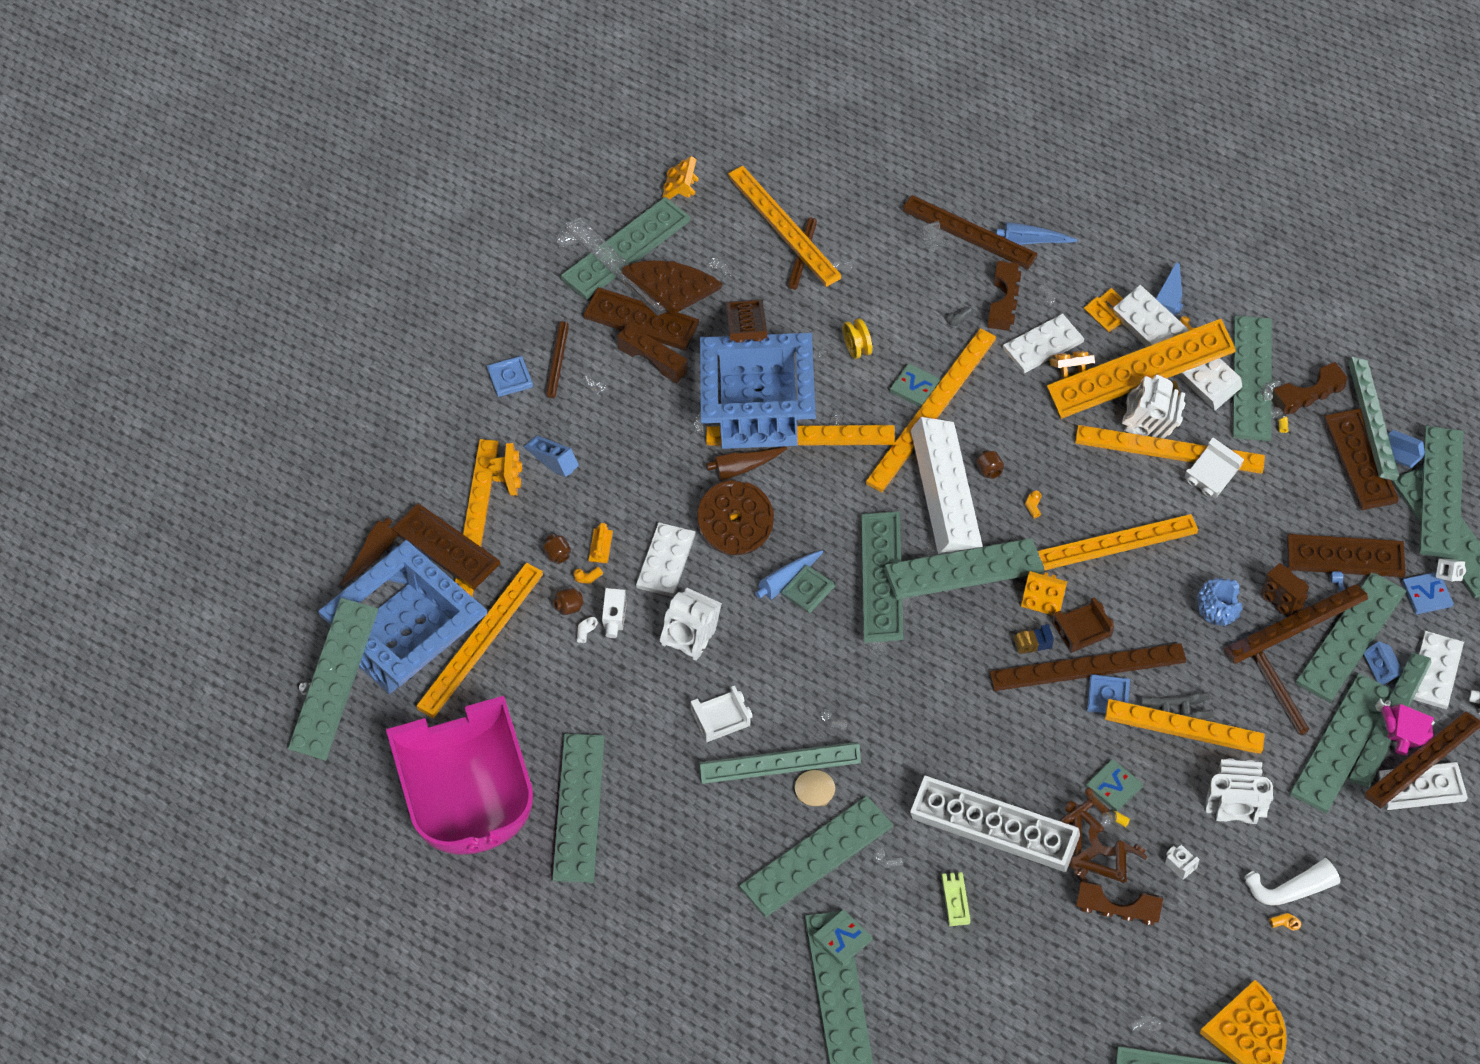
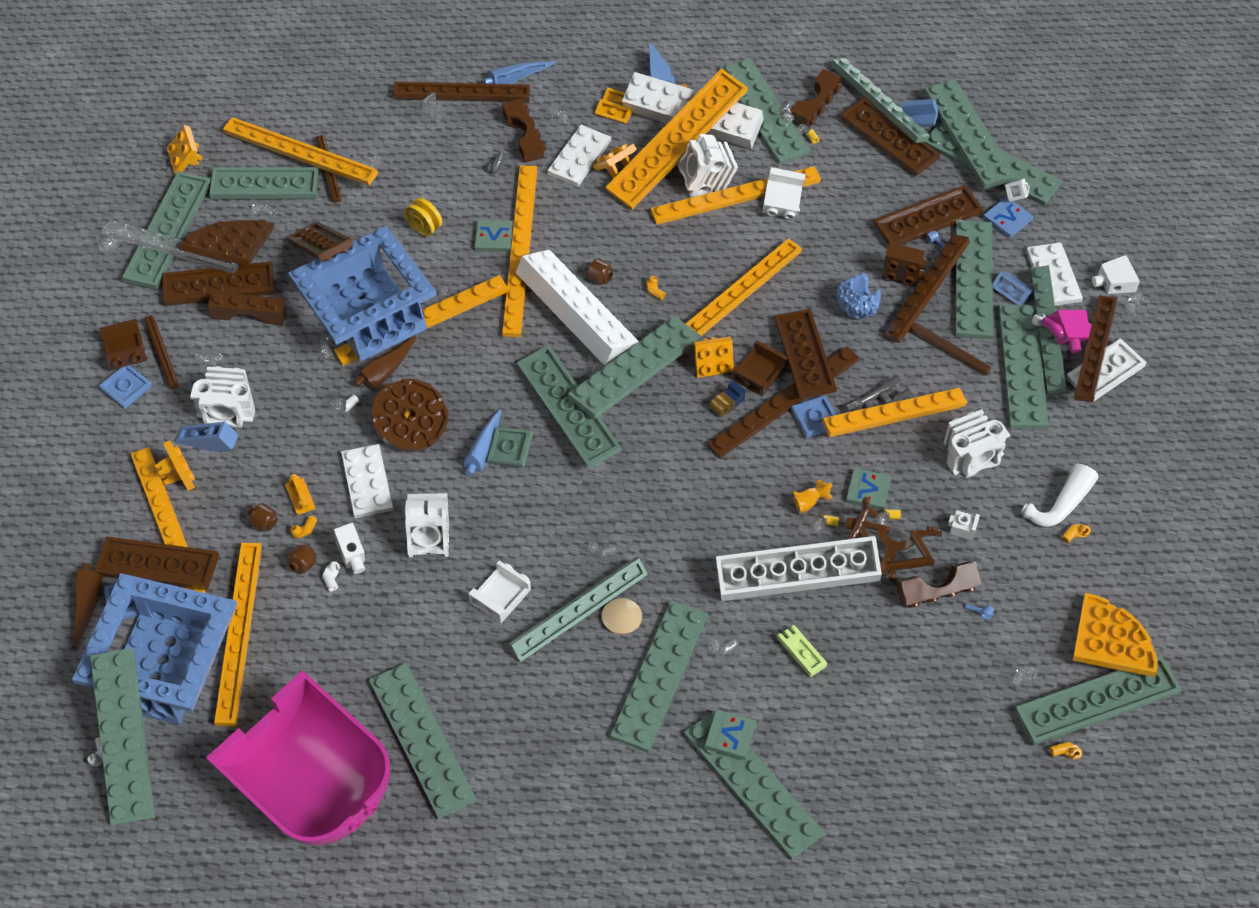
camera: 30 degrees left, 0 degrees up
(527, 338) = (123, 344): none -> reddish brown panel
(584, 425) = (223, 397): none -> white piece
(686, 482) = (344, 405): none -> arm
(736, 242) = (264, 183): none -> sand green plate
(1052, 765) = (807, 499): none -> light orange animal
(1052, 793) = (824, 520): none -> arm
(1133, 631) = (805, 354): none -> reddish brown plate
(1149, 951) = (986, 612): none -> medium blue hand

